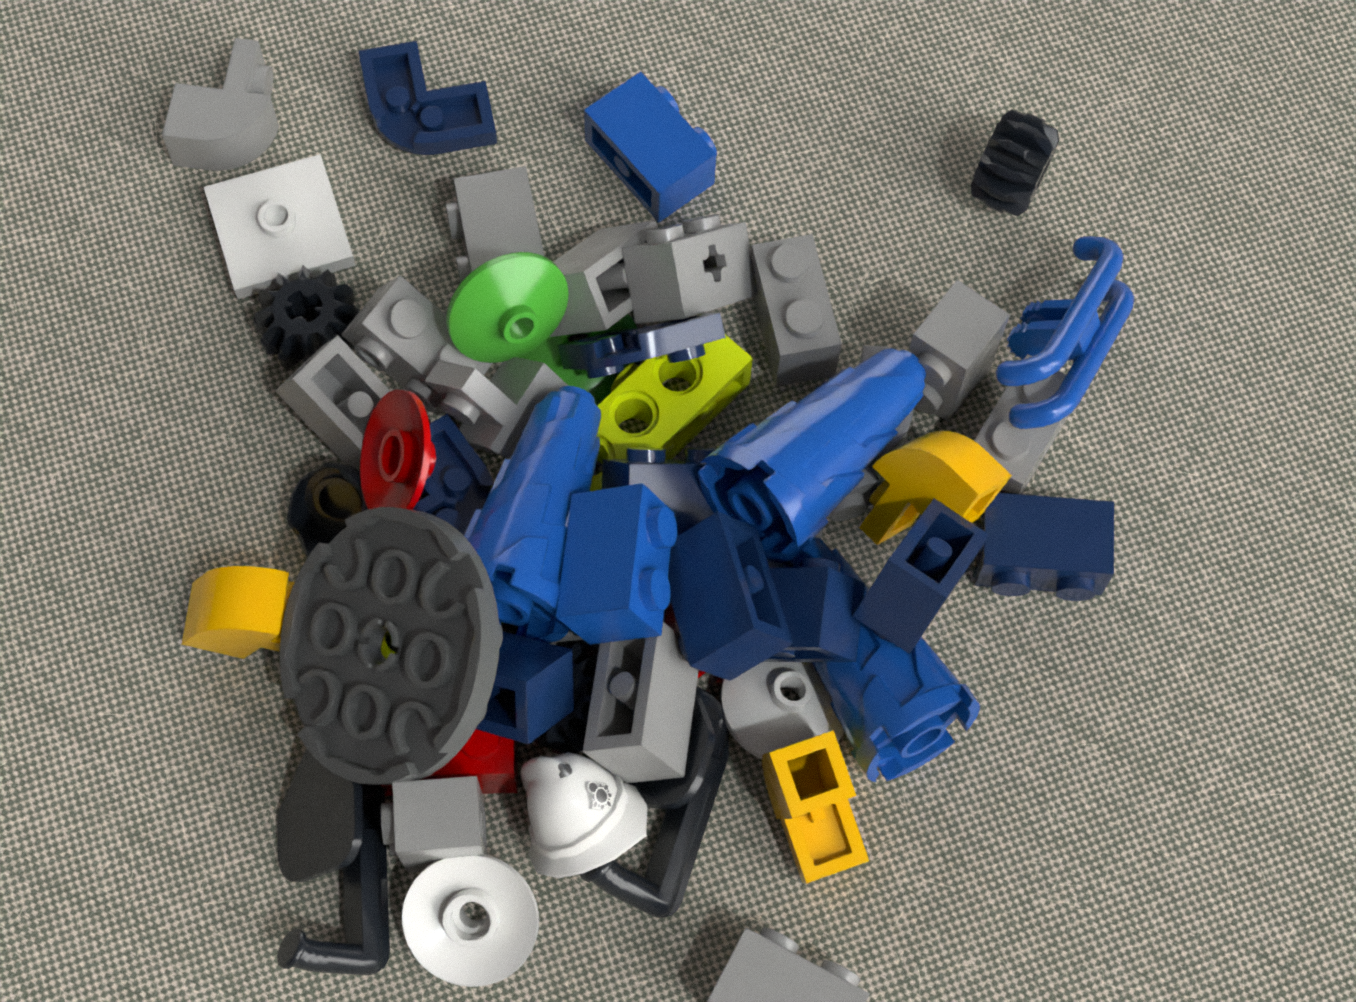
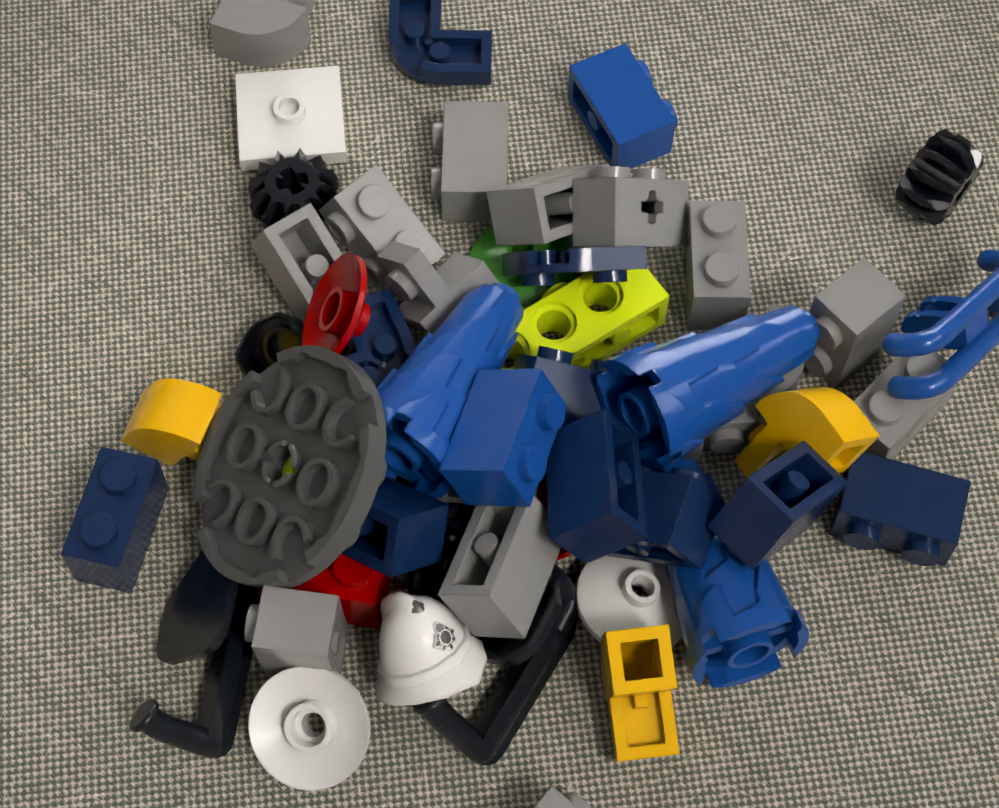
camera: 15 degrees right, 5 degrees down
(200, 735) = (115, 520): none -> dark blue brick
(507, 307) = (459, 190): bright green dish -> none

